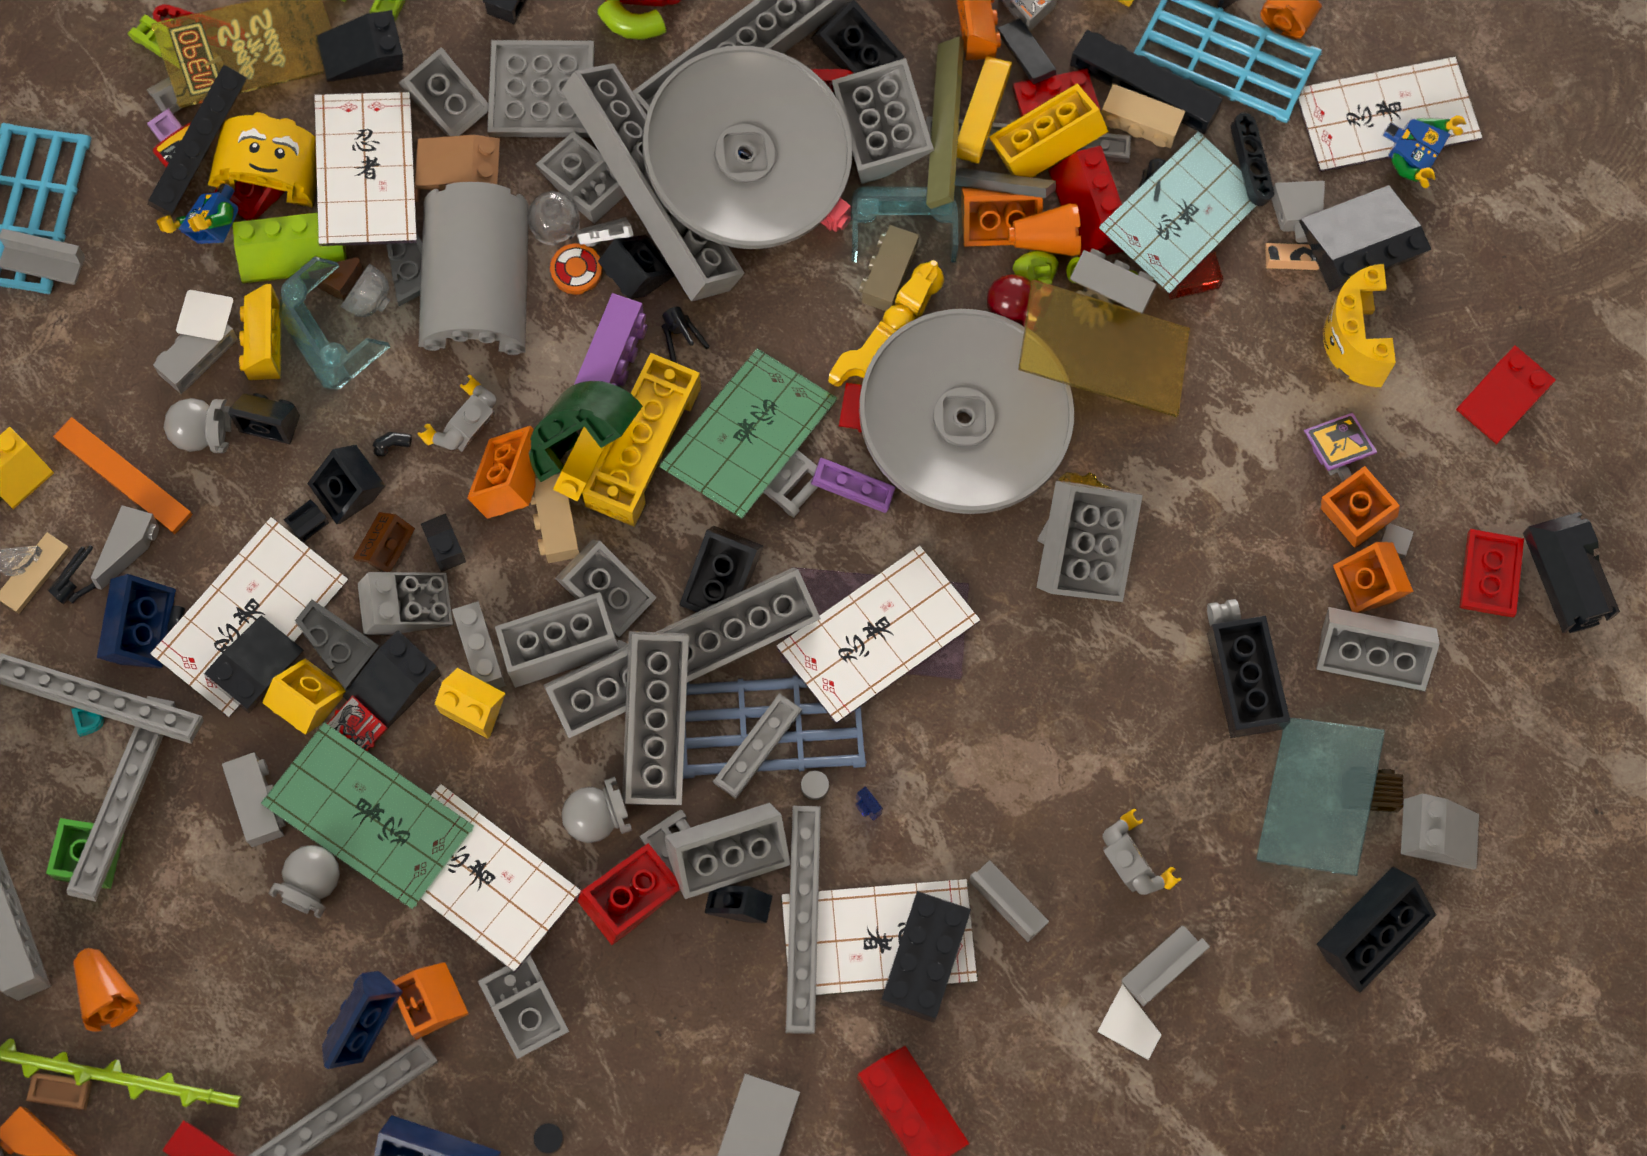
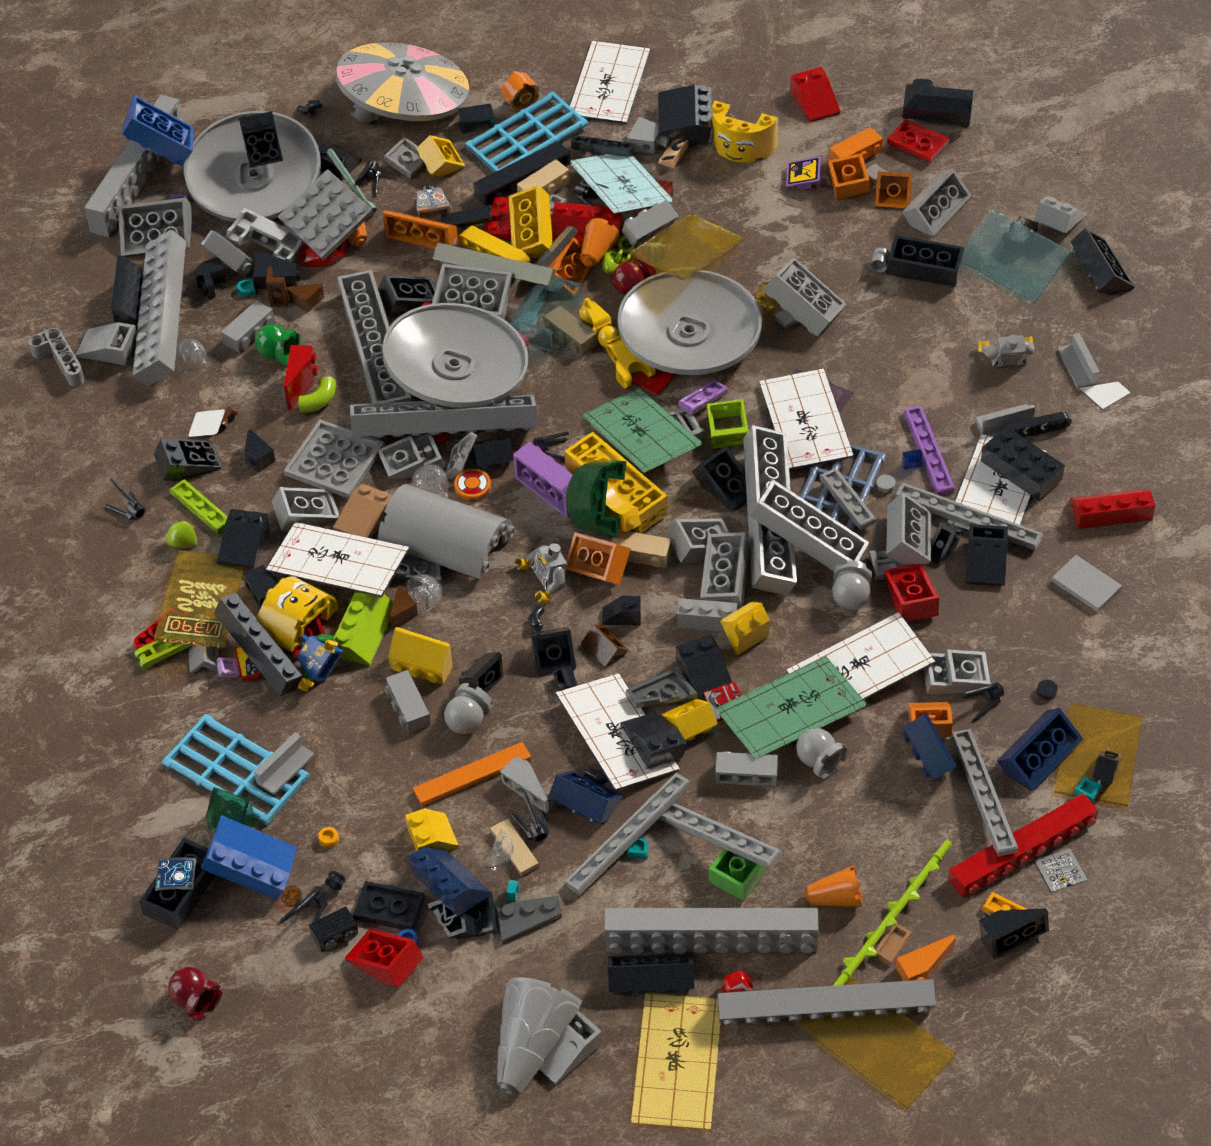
camera: 60 degrees left, 20 degrees down
(204, 315) = (388, 681): white sticker -> none
(298, 102) = (258, 583): none -> black brick
(327, 360) = (452, 630): clear light blue windscreen -> none
(403, 602) = (652, 647): light grey slope -> none
(508, 1066) = (991, 692): none -> black plant
(737, 970) = (986, 554): none -> black slope
(787, 528) = (731, 436): none -> lime window
(903, 819) = (931, 453): none -> medium lavender tile
(1011, 950) = (1054, 422): none -> black beam
(1419, 145) = (642, 72): torso -> none
(1427, 495) = (866, 142): none -> orange brick

